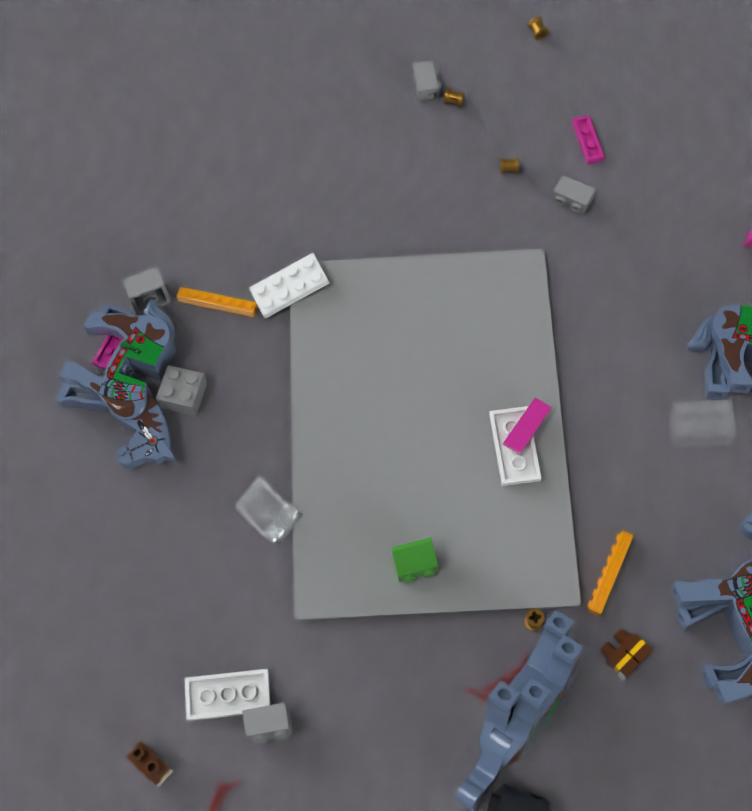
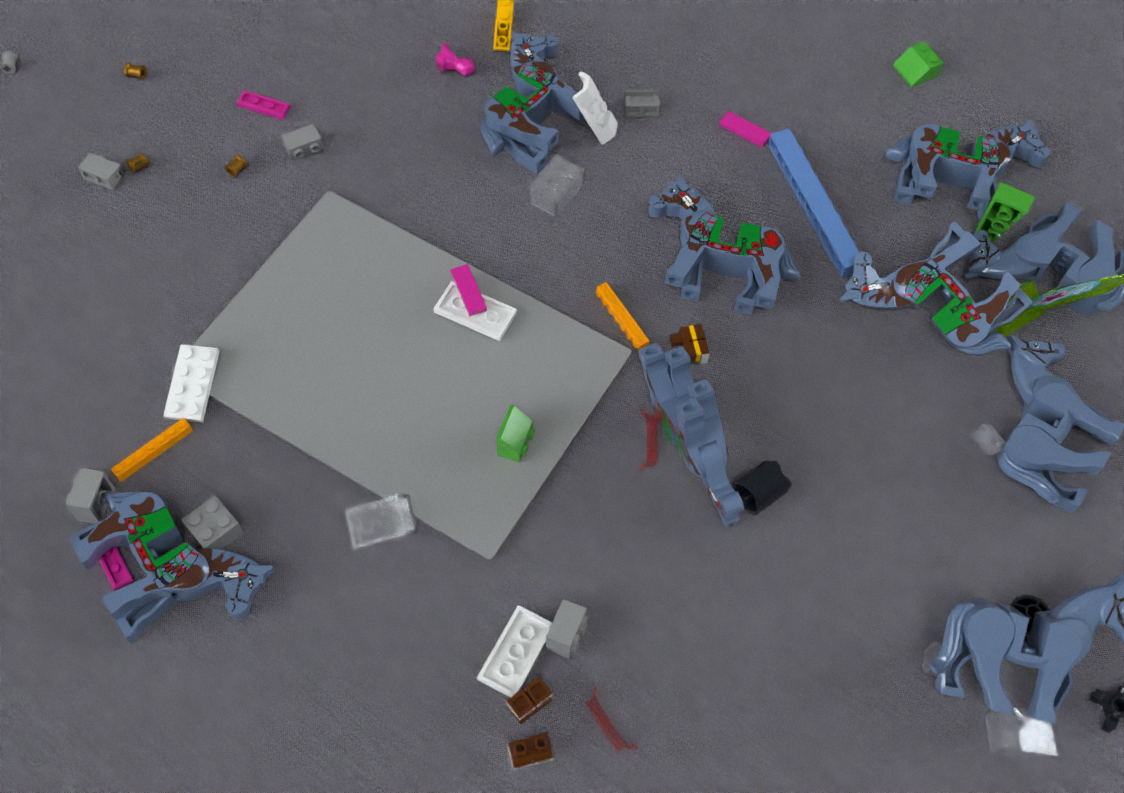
camera: 65 degrees left, 5 degrees down
(185, 733) = (530, 701): none -> reddish brown hips
(530, 625) = (624, 391): pearl gold bush -> none

